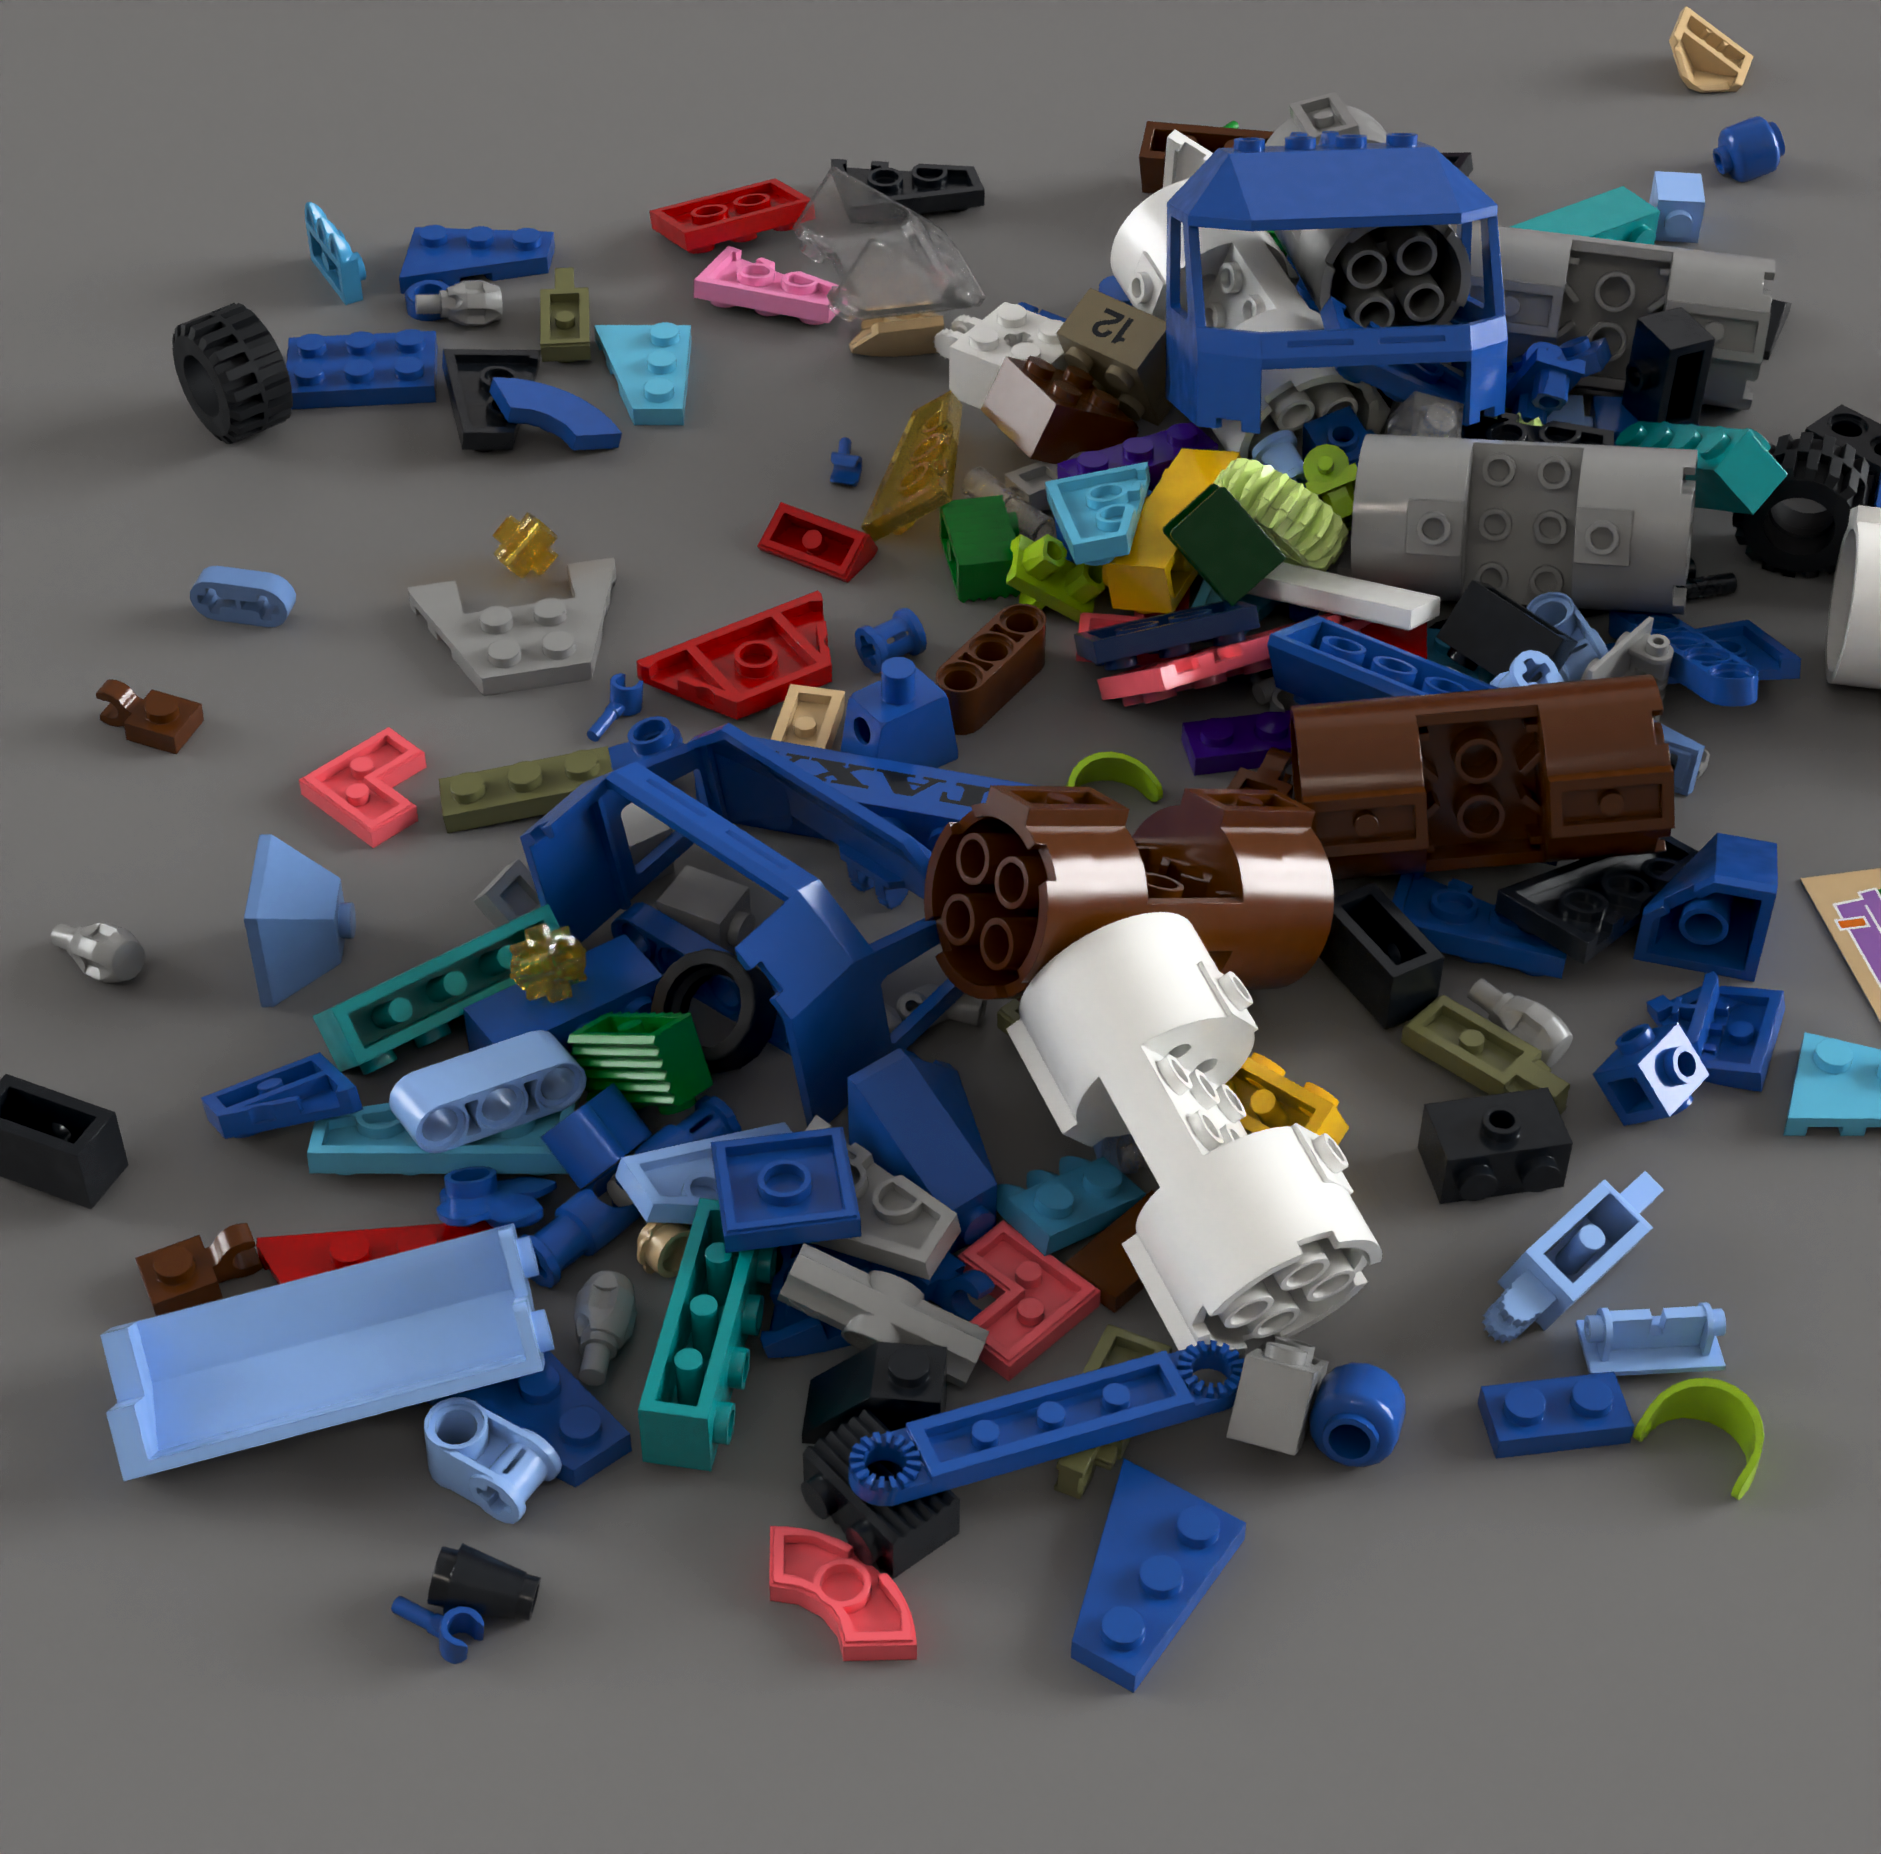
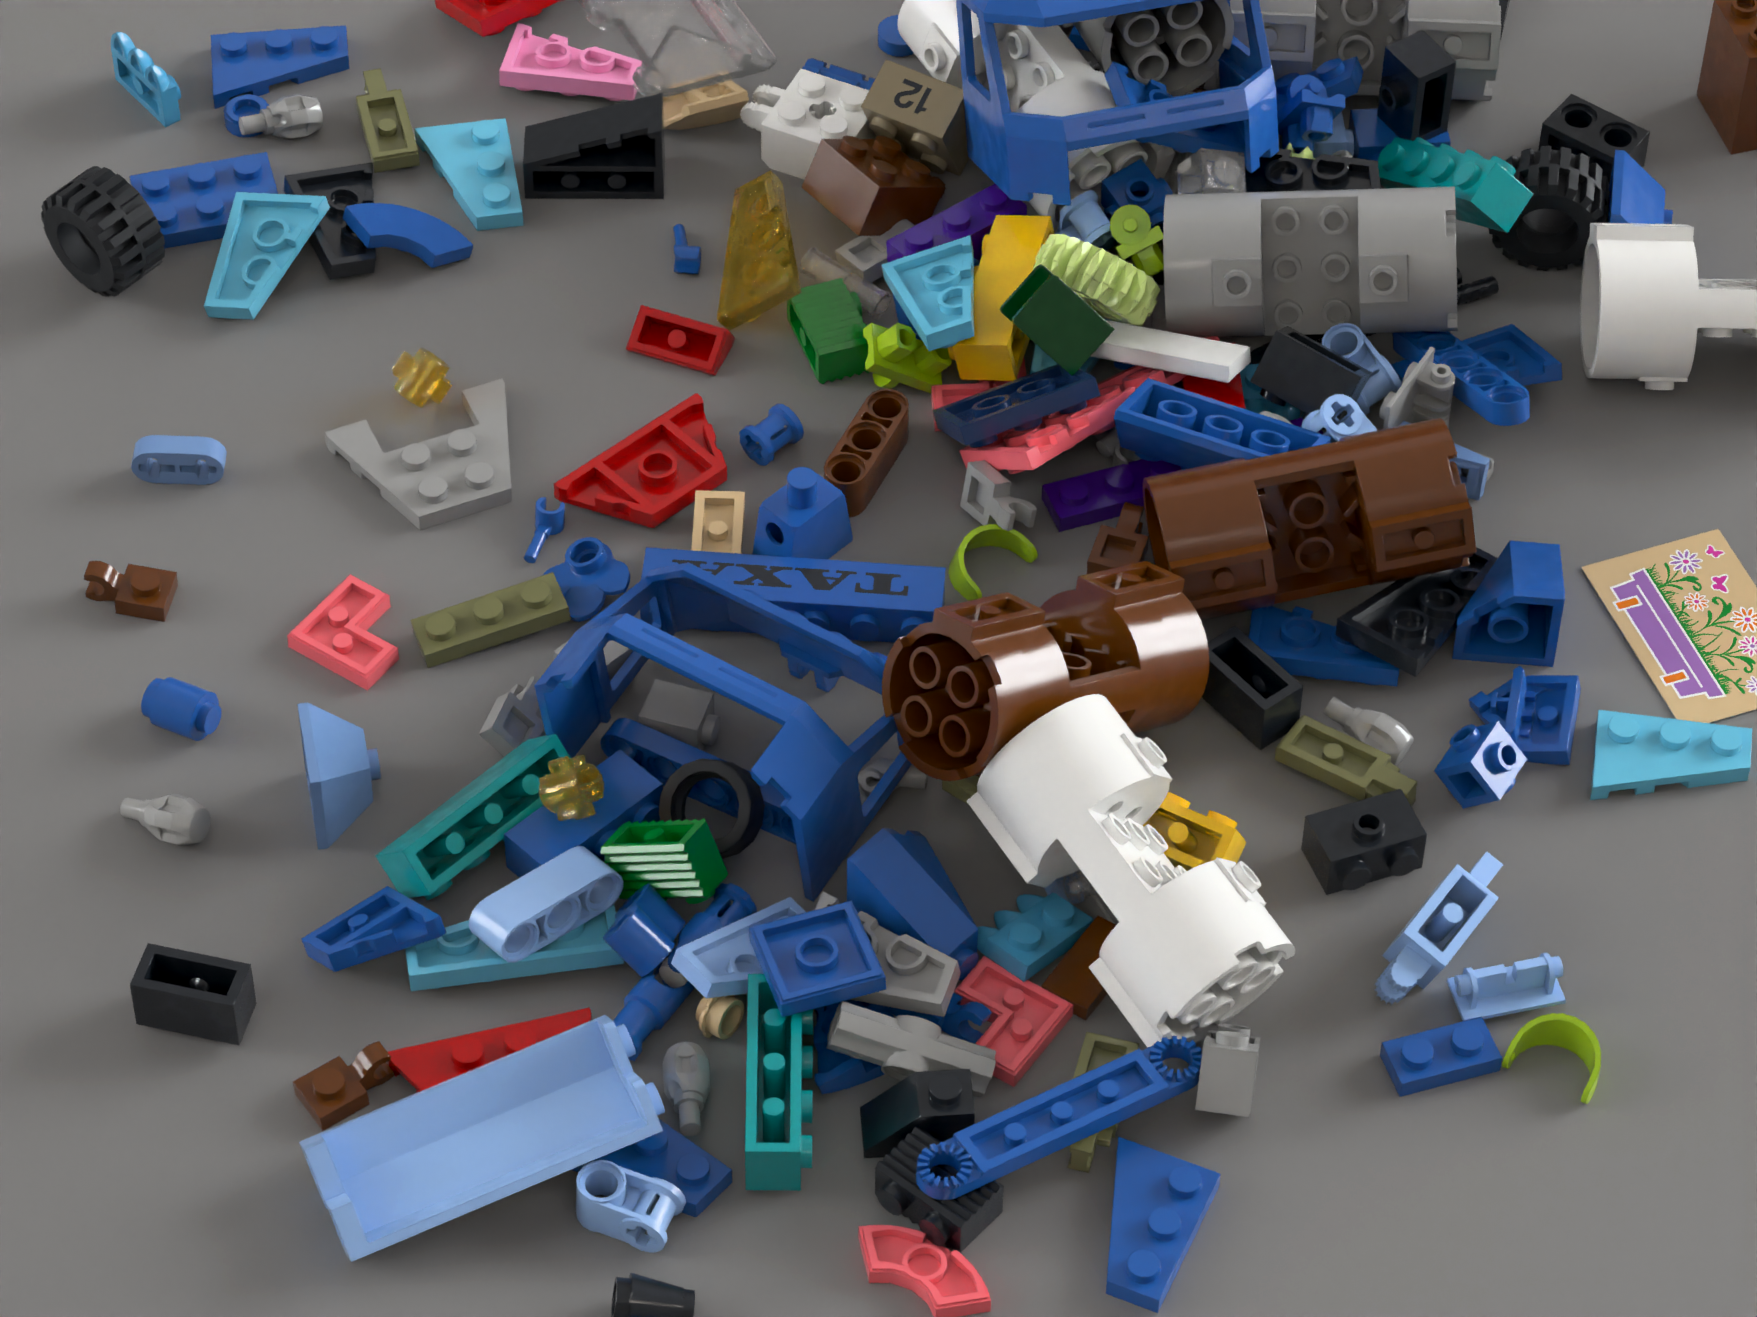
camera: 10 degrees left, 5 degrees up
(155, 838) = (181, 708): none -> blue brick
(393, 410) = (258, 249): none -> medium azure wing
(478, 1196) = (558, 995): blue plate -> none
(776, 361) = (598, 153): none -> black wedge
(1118, 726) = (989, 499): none -> light grey plate
(1357, 1414) = (1291, 1078): blue head -> none

